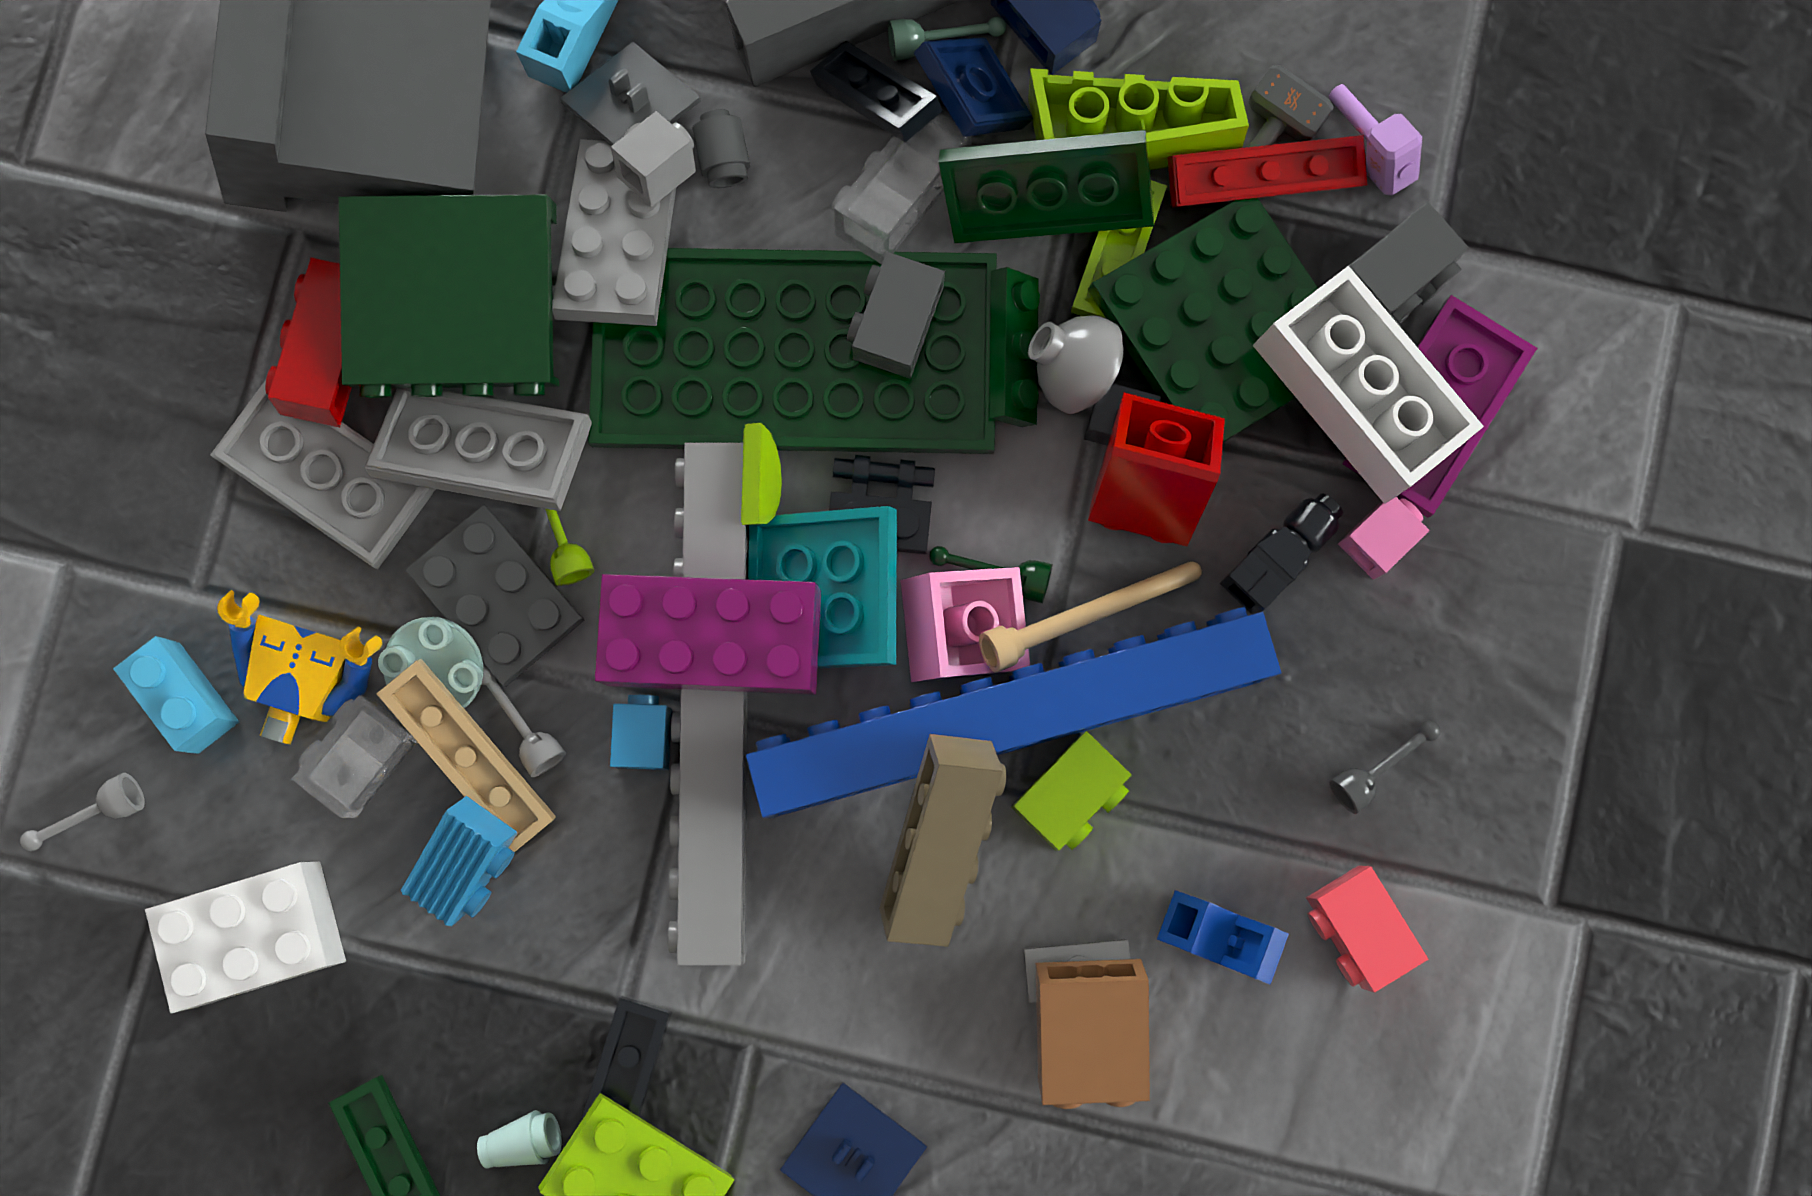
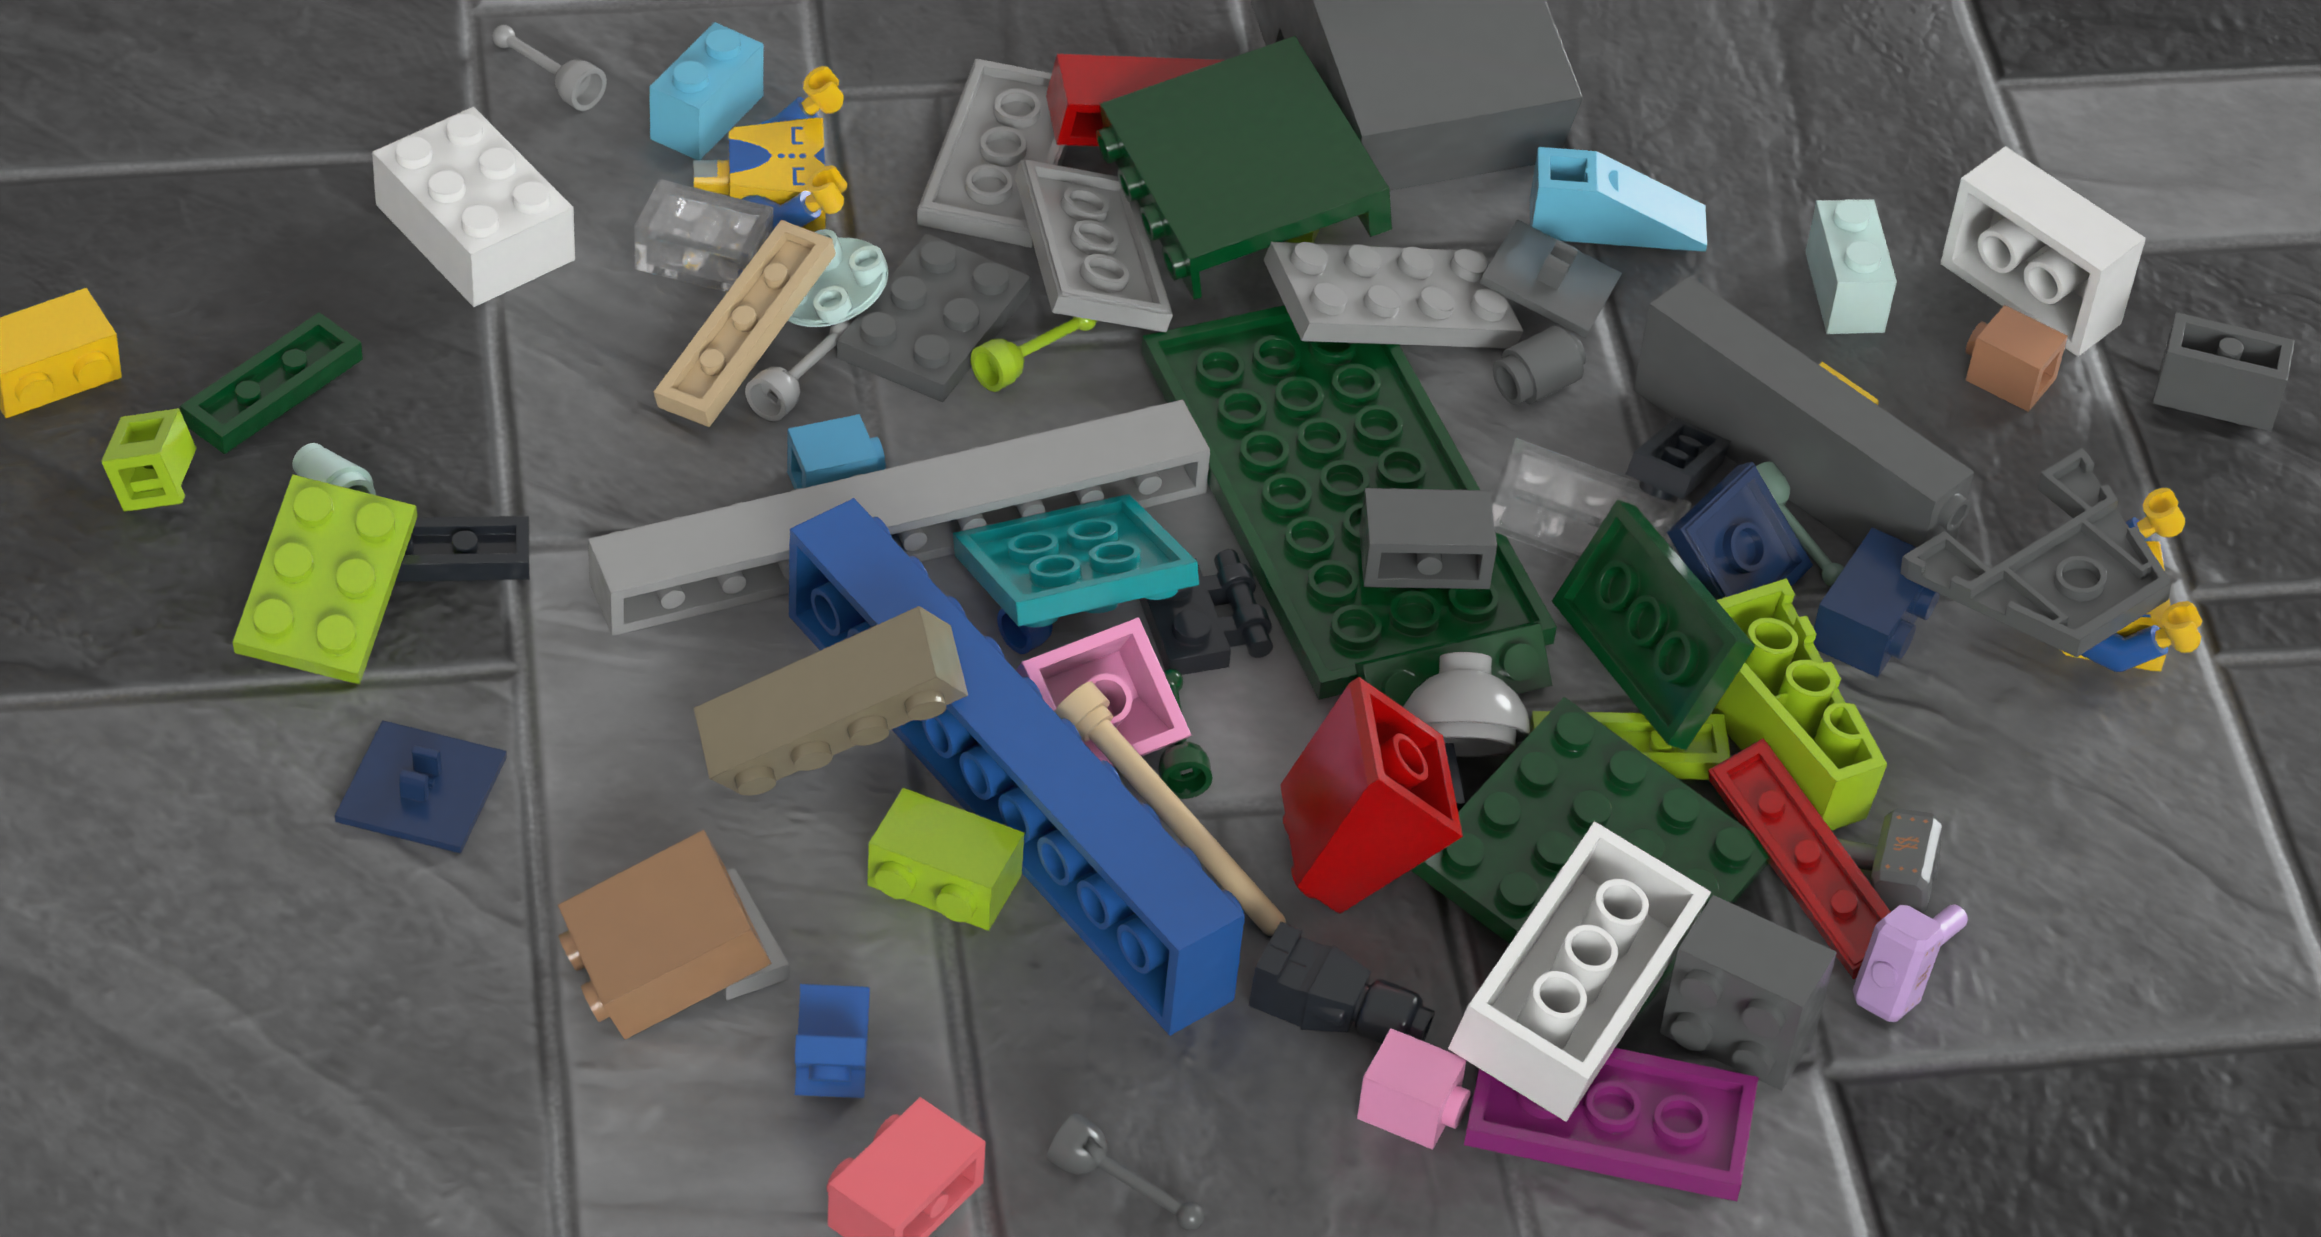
camera: 65 degrees right, 35 degrees down
(459, 862) = (626, 340): dark azure brick -> none
(654, 158) = (1487, 285): light grey brick -> none
(708, 634) = (975, 451): magenta brick -> none
(760, 476) = (1179, 476): lime tile -> none

